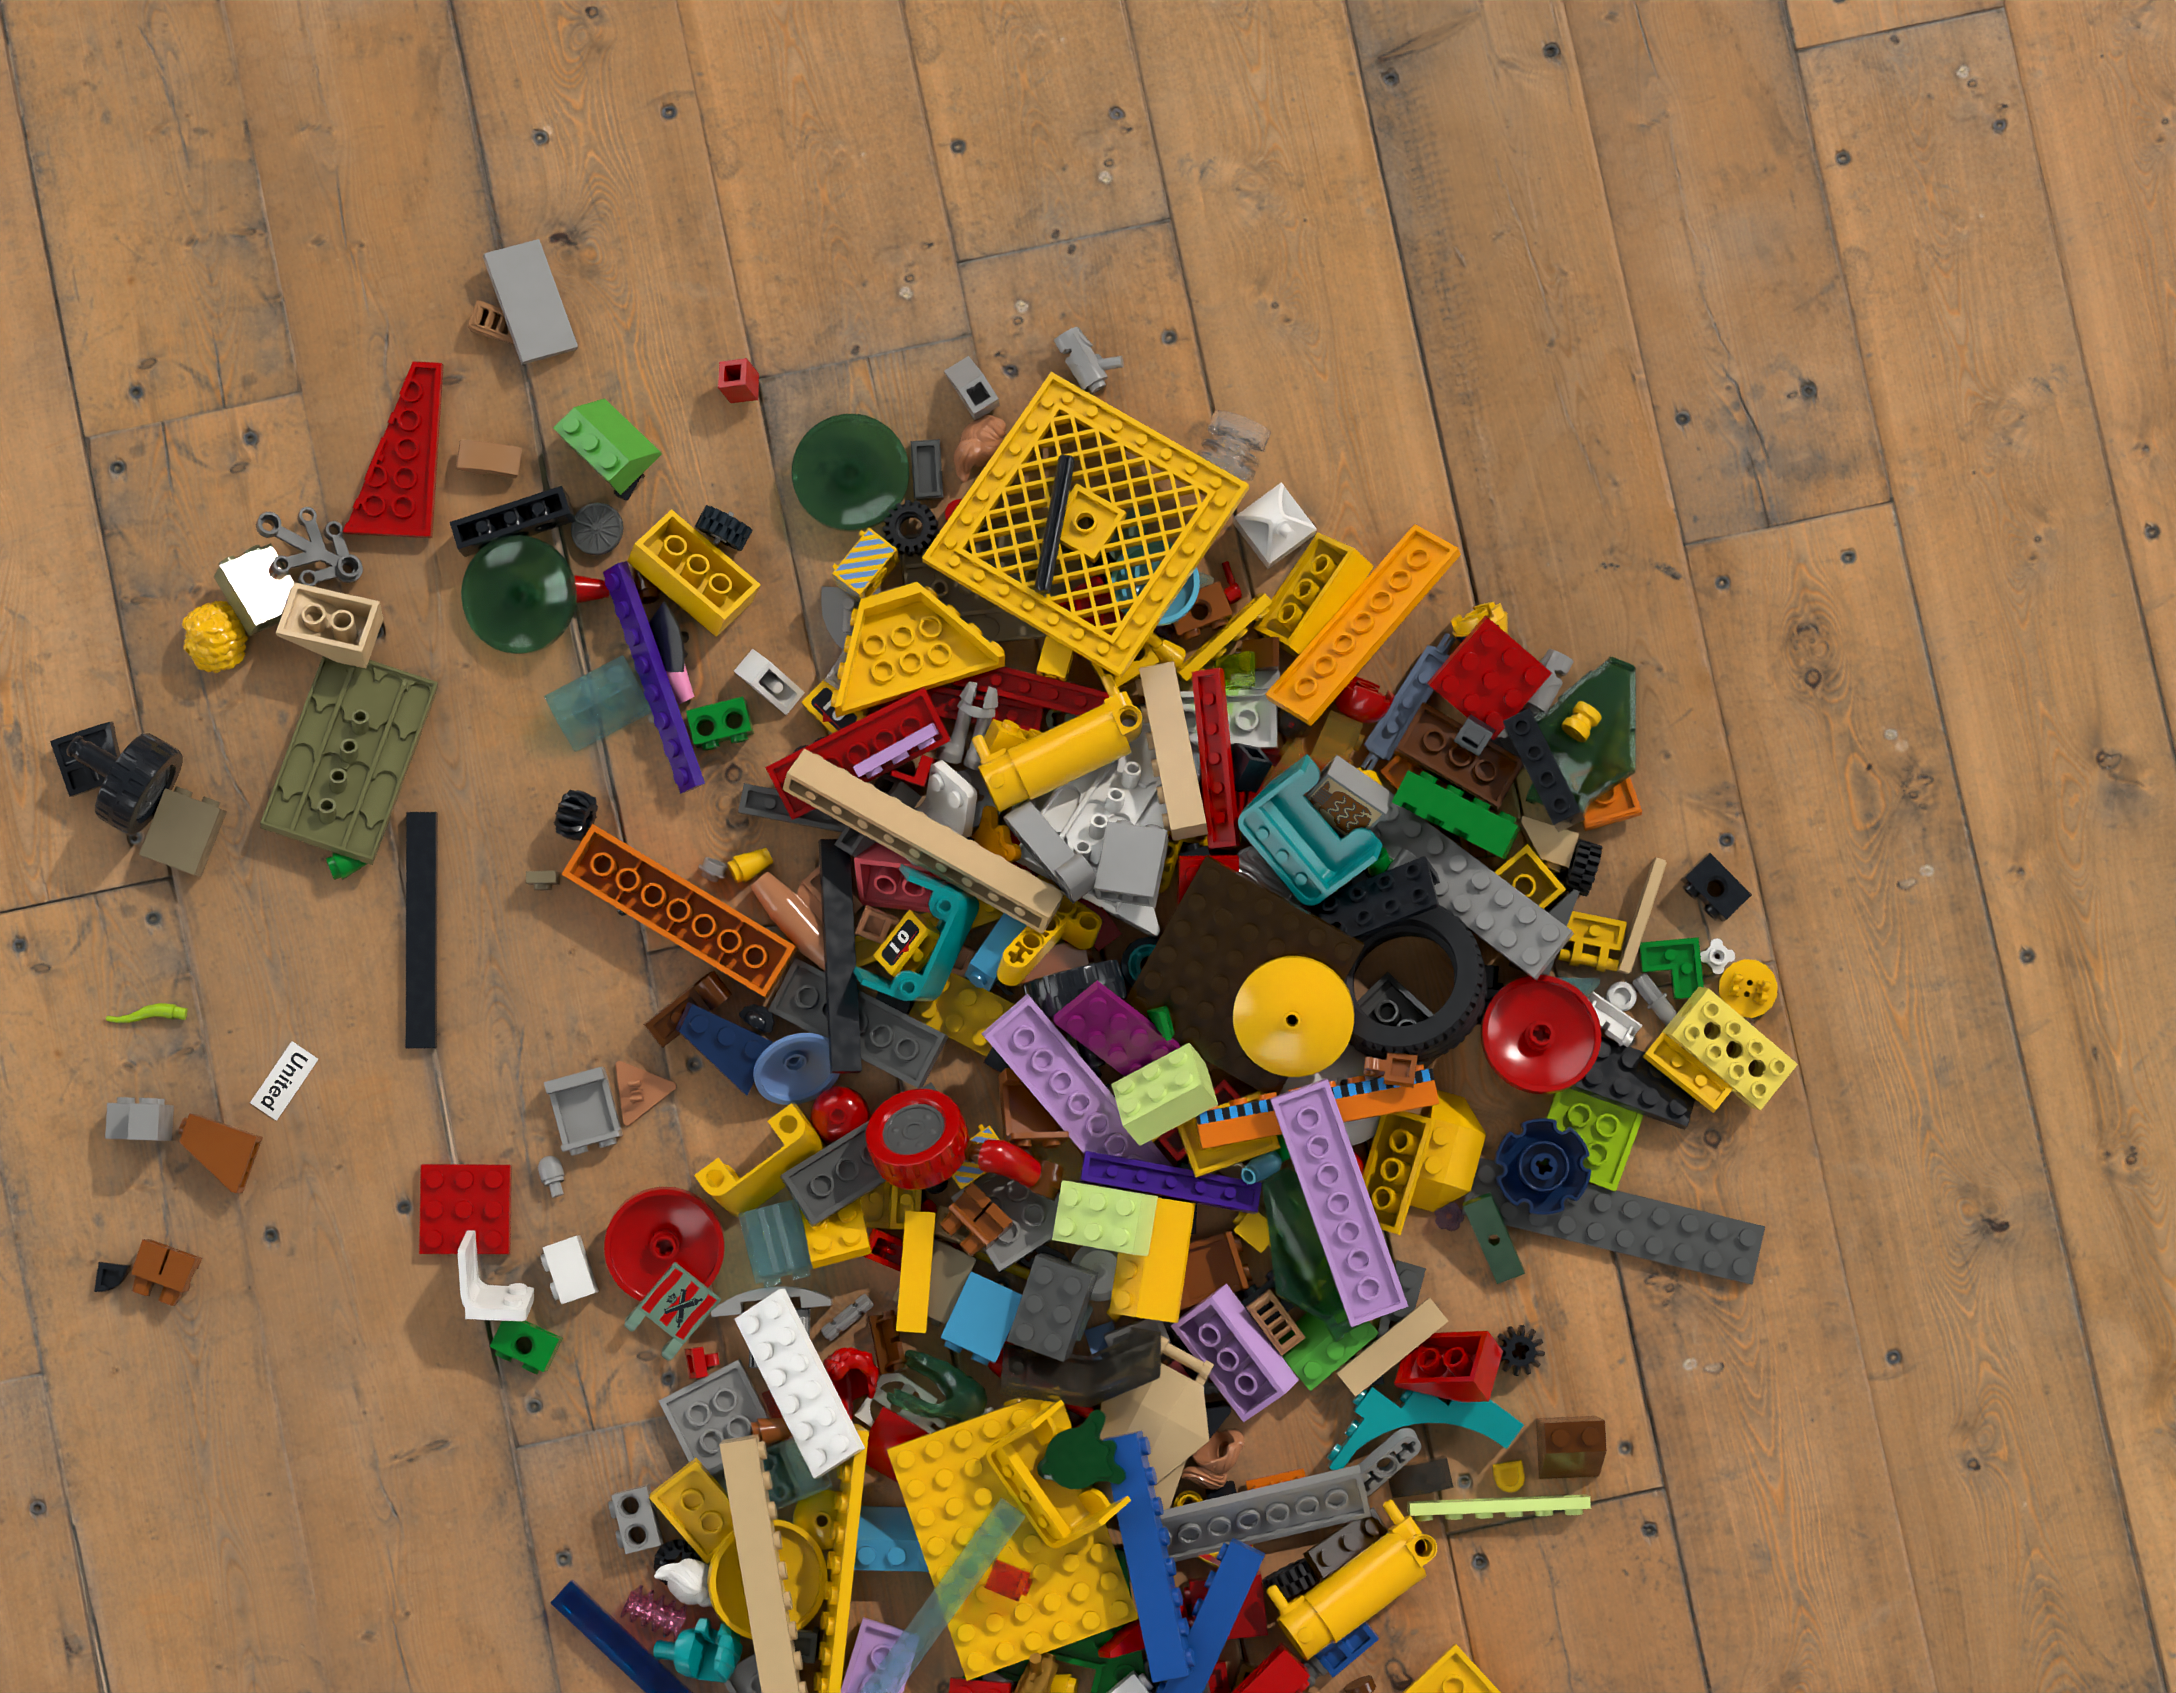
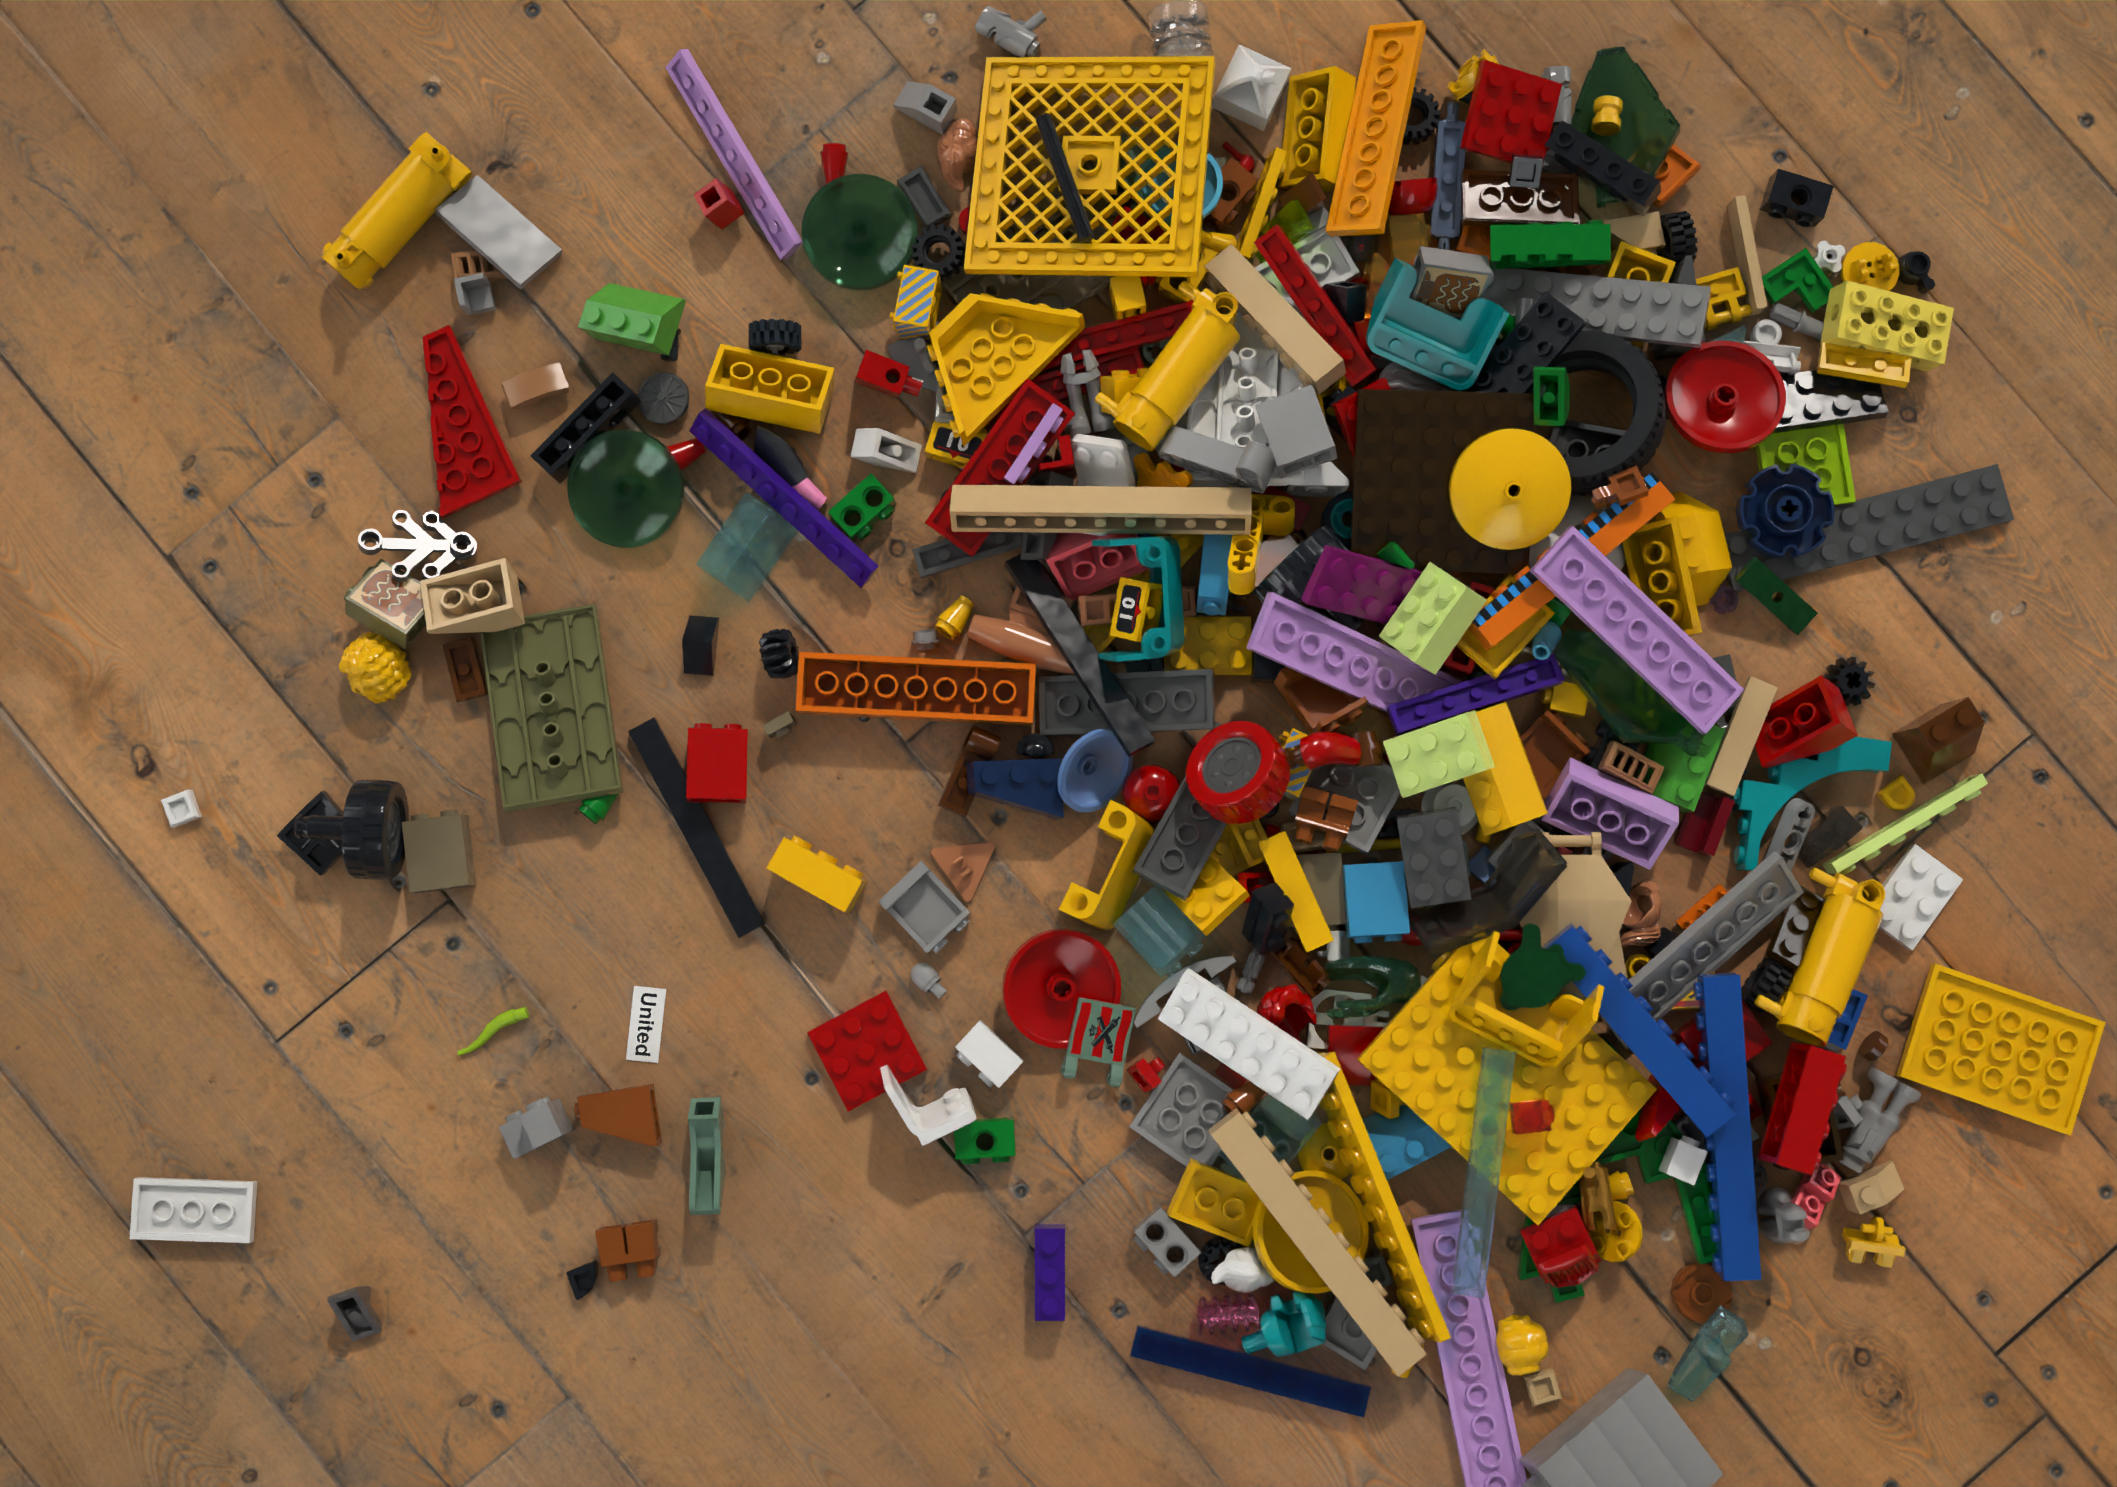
camera: 30 degrees left, 0 degrees up
(275, 1225) = (707, 1156): none -> sand green arch
(292, 680) = (465, 669): none -> reddish brown plate
(447, 237) = (396, 211): none -> yellow piece
(468, 883) = (717, 764): none -> red brick
(479, 347) = (475, 294): none -> light grey panel
(504, 1029) = (817, 873): none -> yellow brick
(511, 768) = (700, 645): none -> black slope
(519, 1491) = (1049, 1272): none -> dark purple brick
(777, 341) = (734, 154): none -> lavender plate
(794, 606) = (873, 375): none -> red torso
(862, 396) = (834, 160): none -> red cone
(878, 1282) = (1268, 918): none -> black brick
(894, 1501) = (1384, 1100): none -> yellow tile
(929, 1342) = (1338, 948): none -> white tile
(1318, 1407) = (1704, 827): none -> dark red panel
(1372, 955) = (1551, 396): none -> green slope
(1419, 642) = (1430, 117): none -> black tyre
(1471, 1574) = (1915, 896): none -> white plate
(1789, 1009) = (1914, 270): none -> black piece

